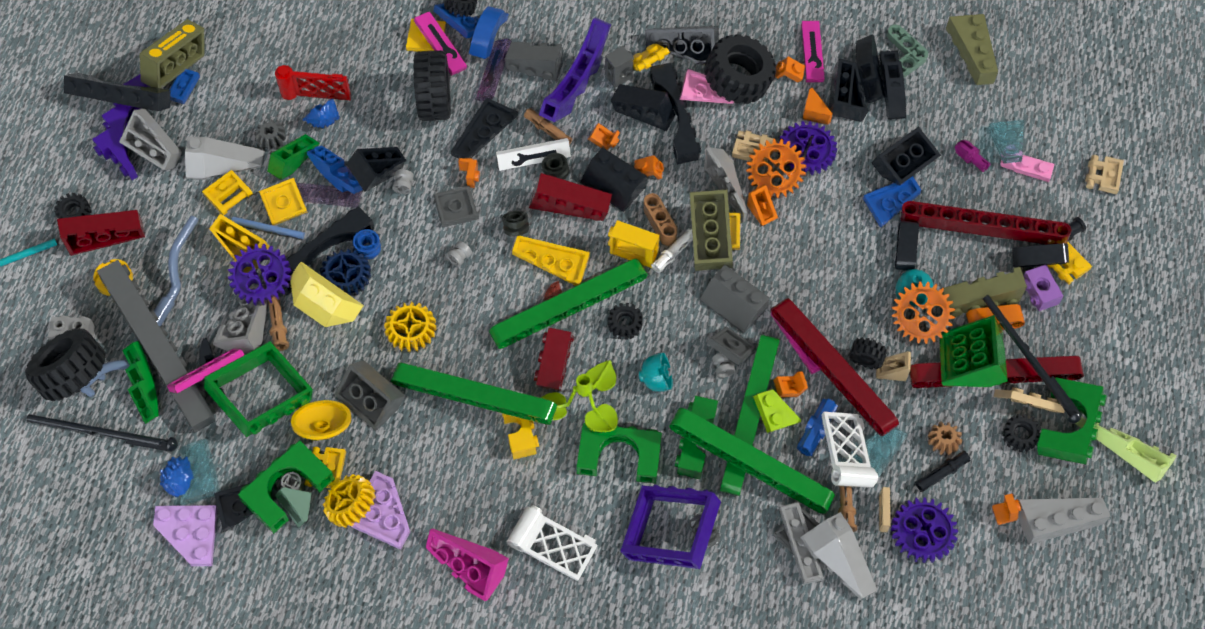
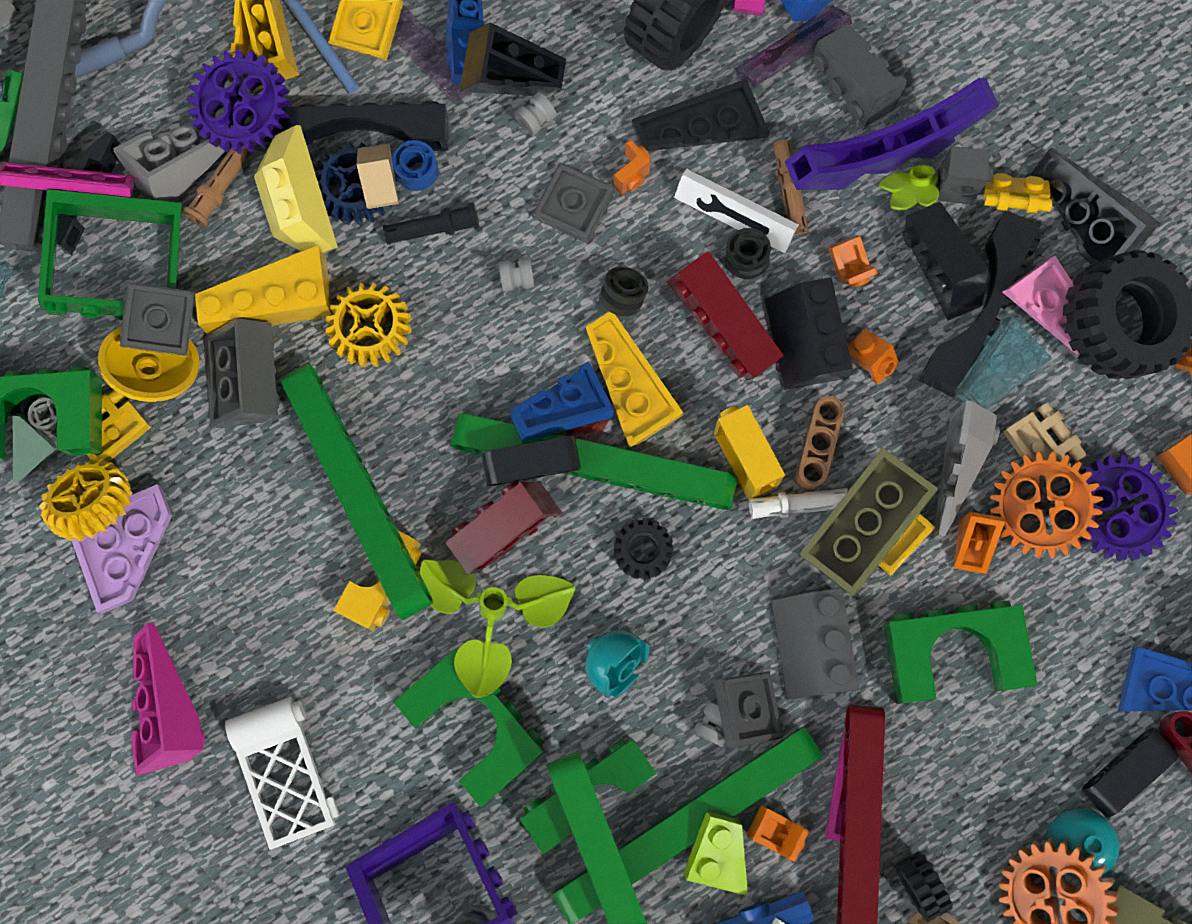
camera: 45 degrees right, 15 degrees up
(309, 396) = (157, 319): none -> dark grey tile
(356, 343) = (274, 294): none -> yellow wedge
(357, 257) = (377, 176): none -> tan slope
(404, 257) = (447, 221): none -> black pin
(534, 288) = (567, 405): none -> blue wing
(543, 318) = (531, 461): none -> black beam
(601, 89) = (912, 187): none -> lime plate
(706, 127) = (1002, 364): none -> clear light blue wing
(802, 233) = (998, 628): none -> green arch

